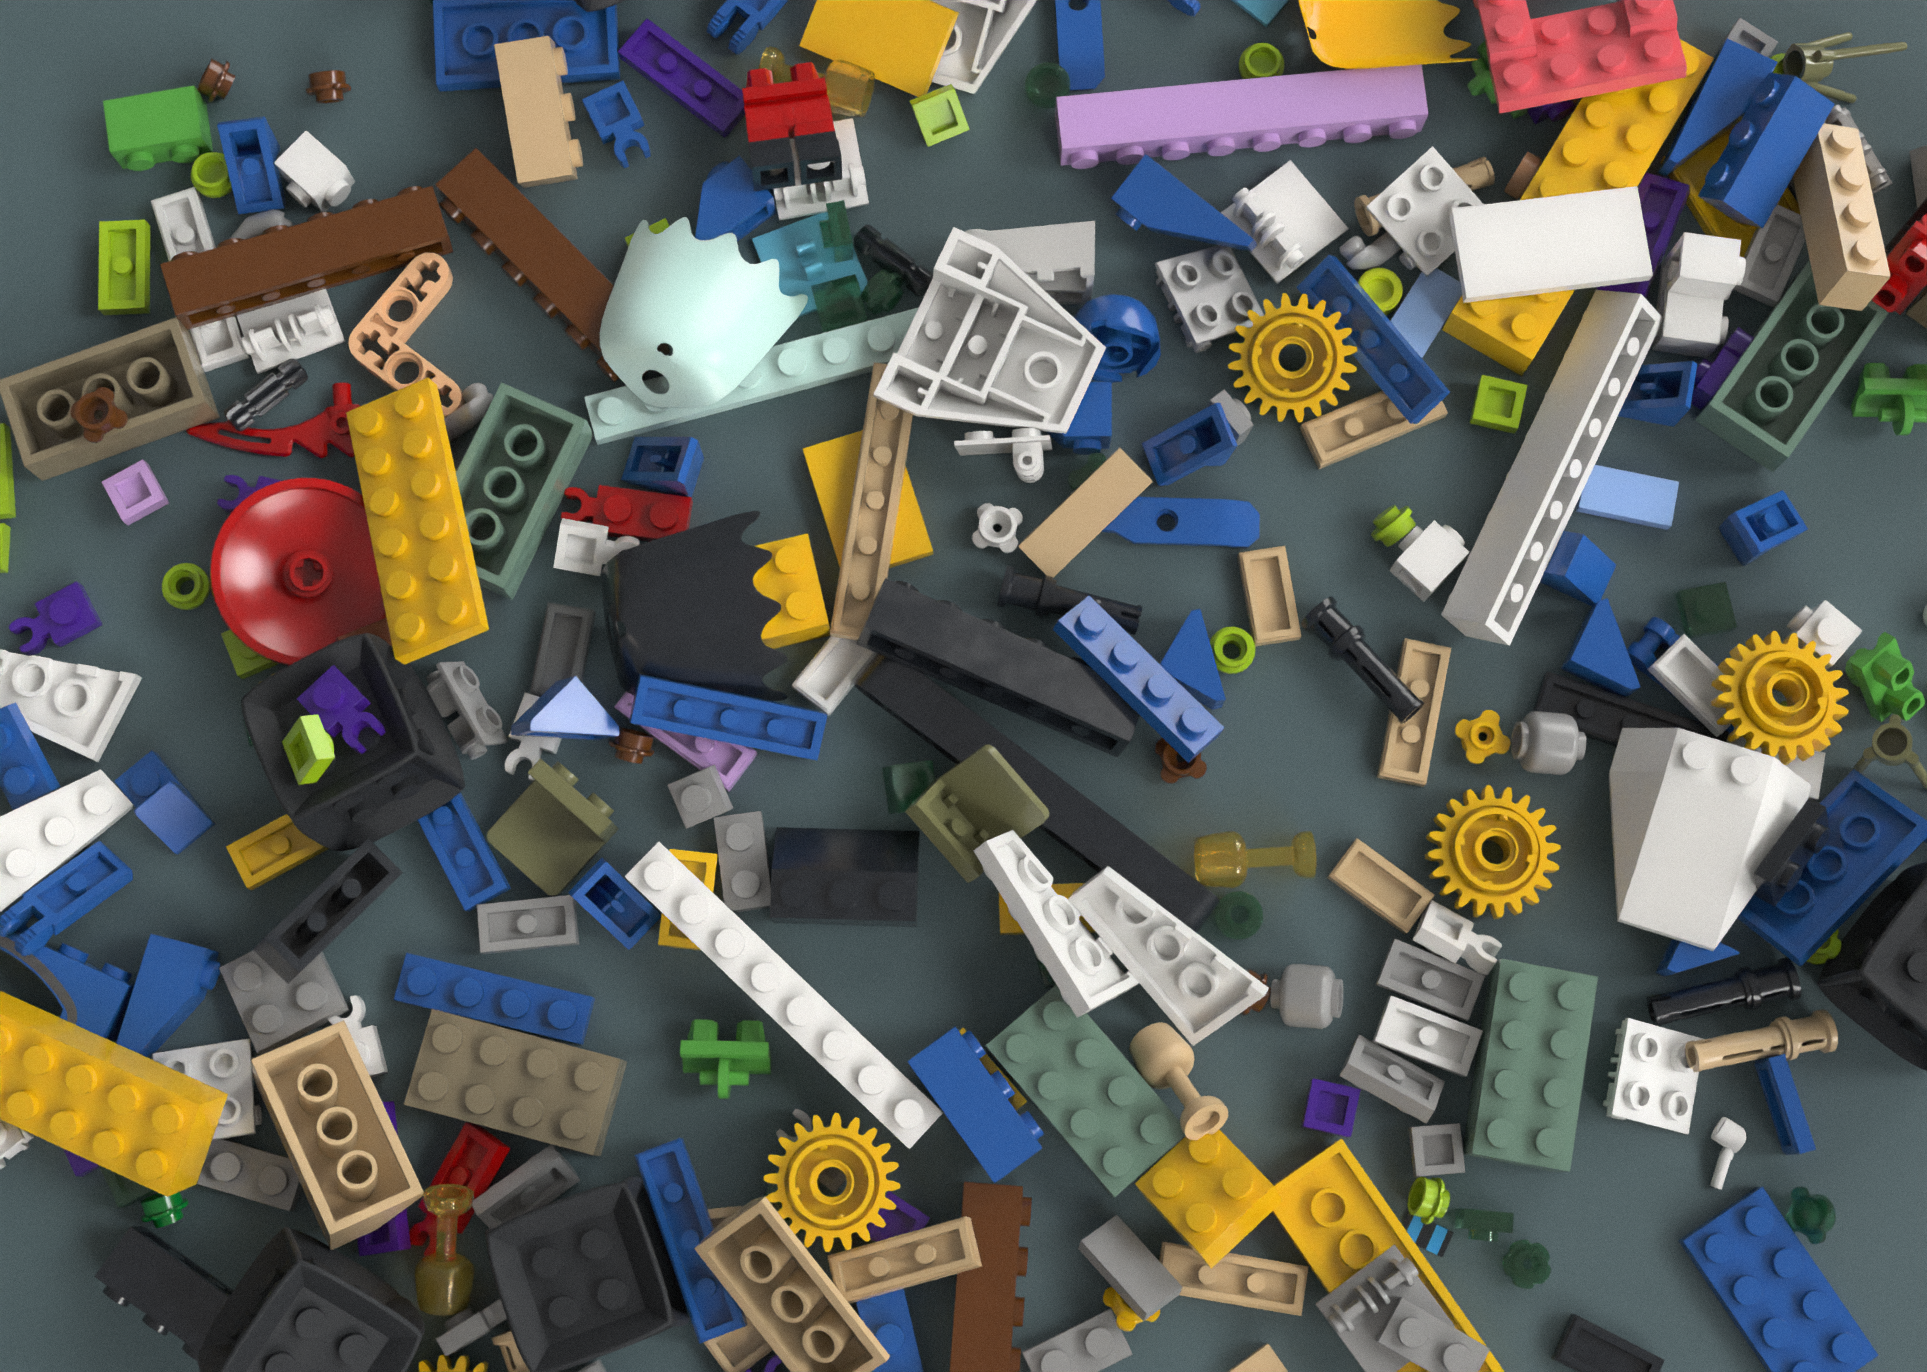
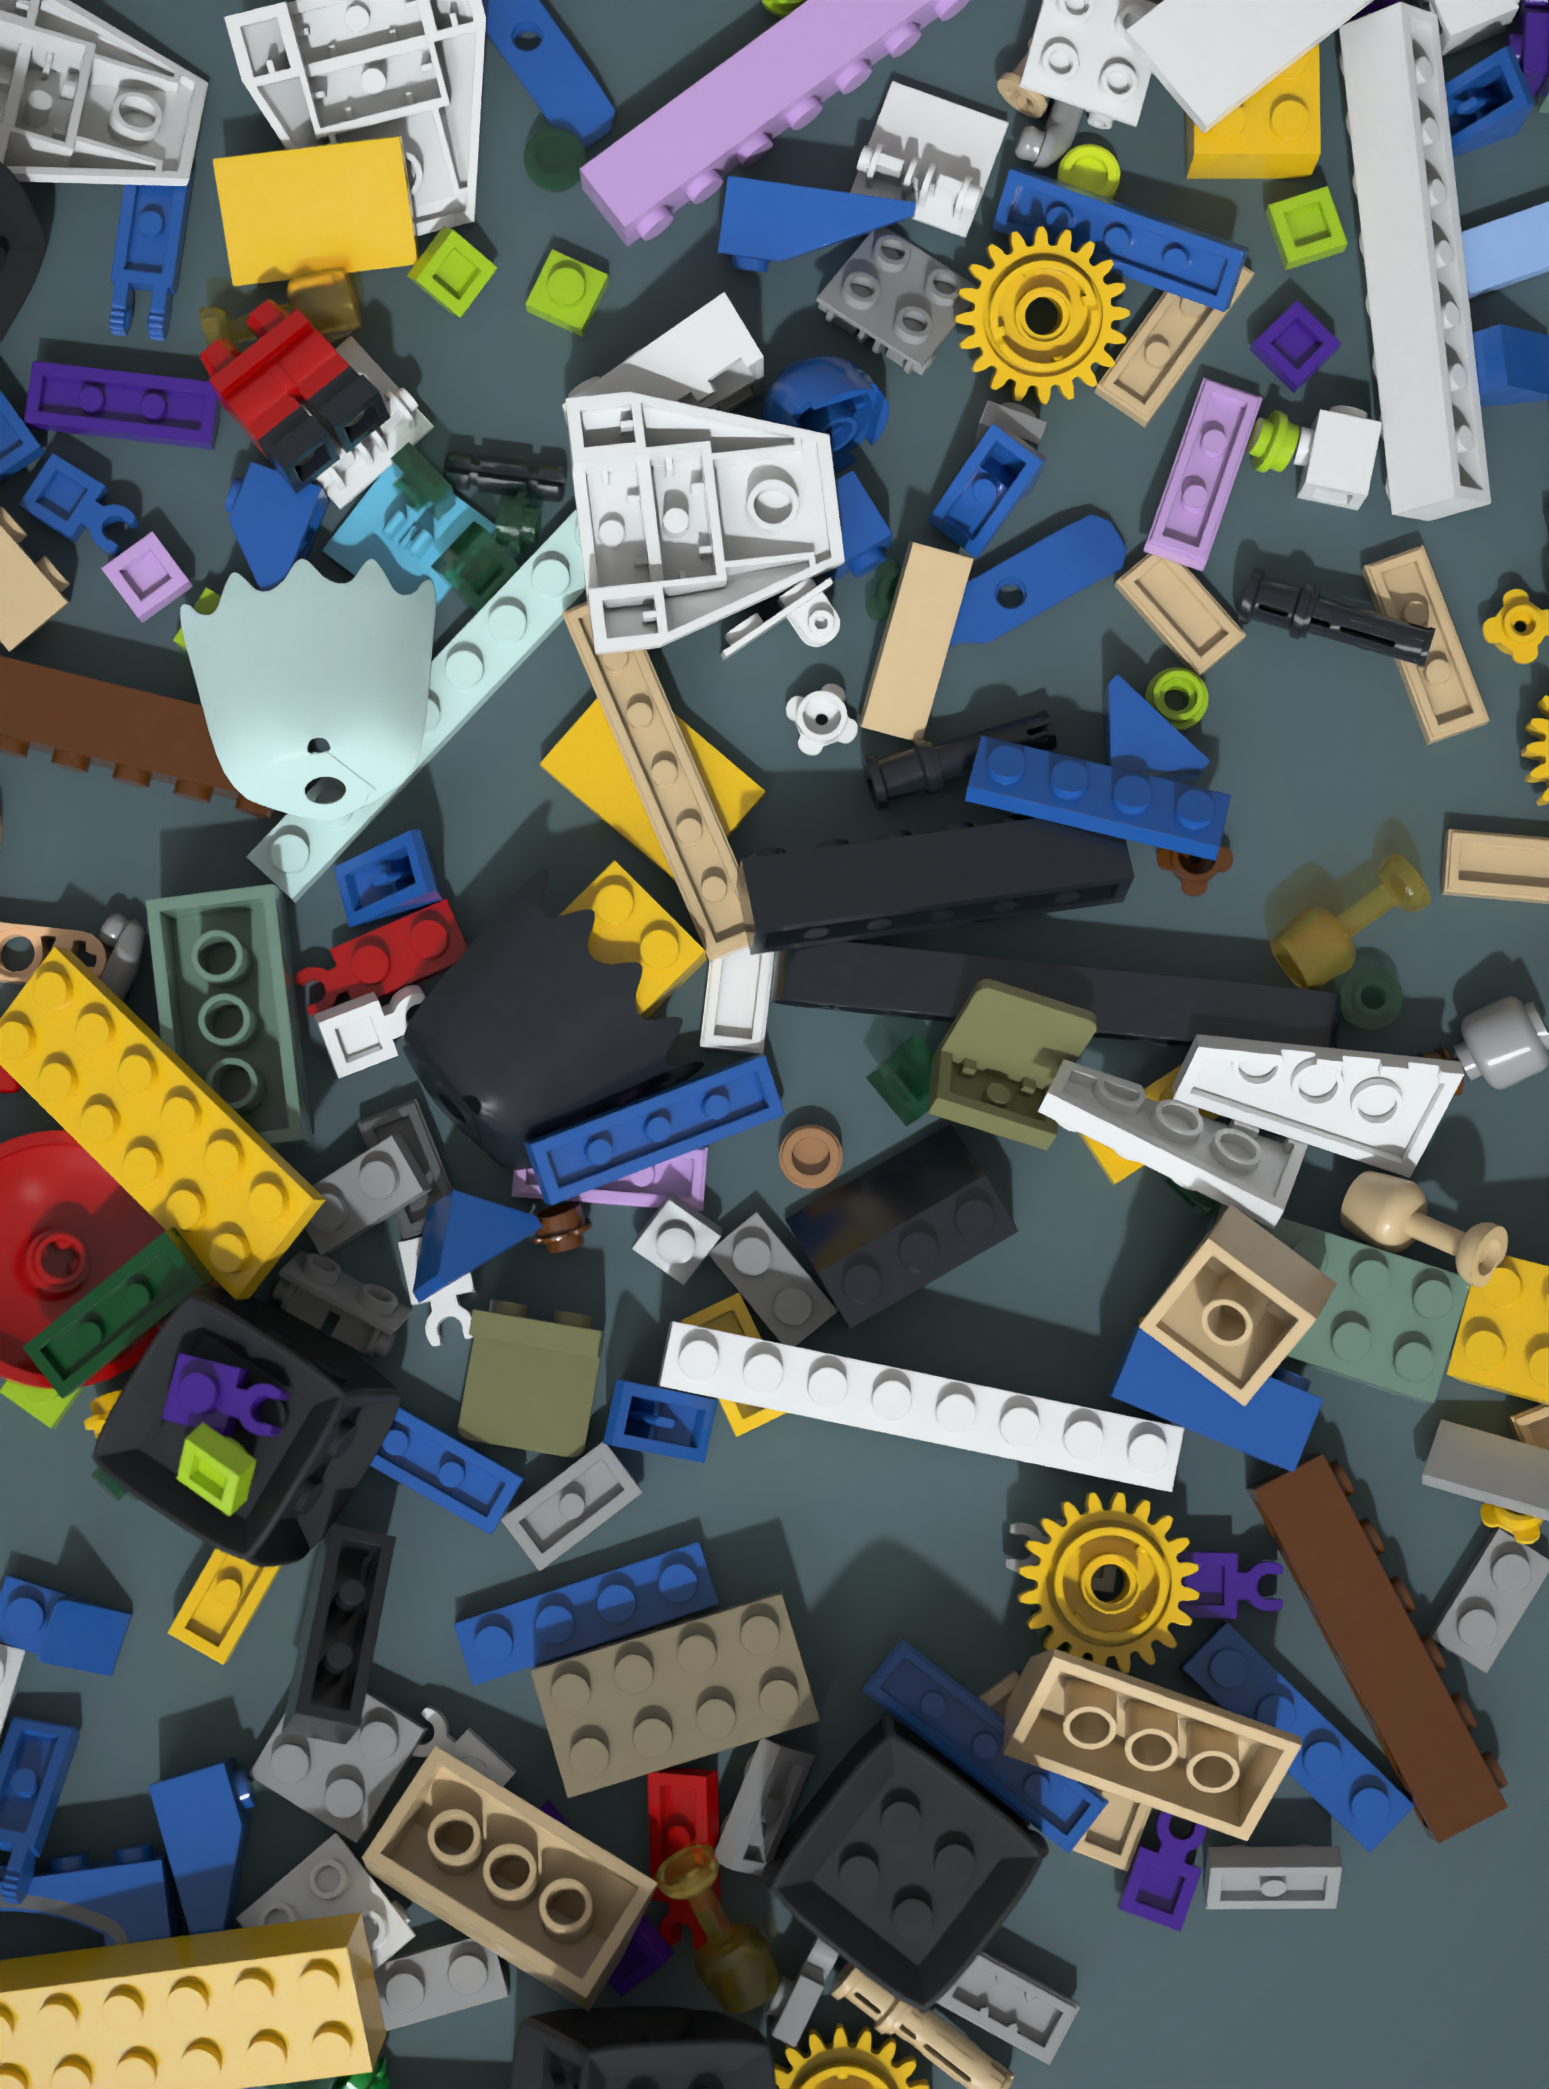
camera: 30 degrees left, 5 degrees up
(317, 622) = (117, 1312): none -> dark green plate
(521, 648) = (366, 1193): none -> light grey plate
(633, 190) = (147, 577): none -> lavender plate
(725, 1061) = (898, 1522): bright green hips -> none
(817, 798) = (810, 1157): none -> medium nougat tile
(905, 1260) = (1243, 1618): tan tile -> none
(1004, 171) = (567, 293): none -> lime plate
(1023, 1051) = (1238, 1305): none -> tan slope
(1335, 519) = (1203, 474): none -> lavender tile
(1427, 309) = (1157, 164): light blue tile -> none
(1445, 474) = (1295, 346): none -> dark purple plate

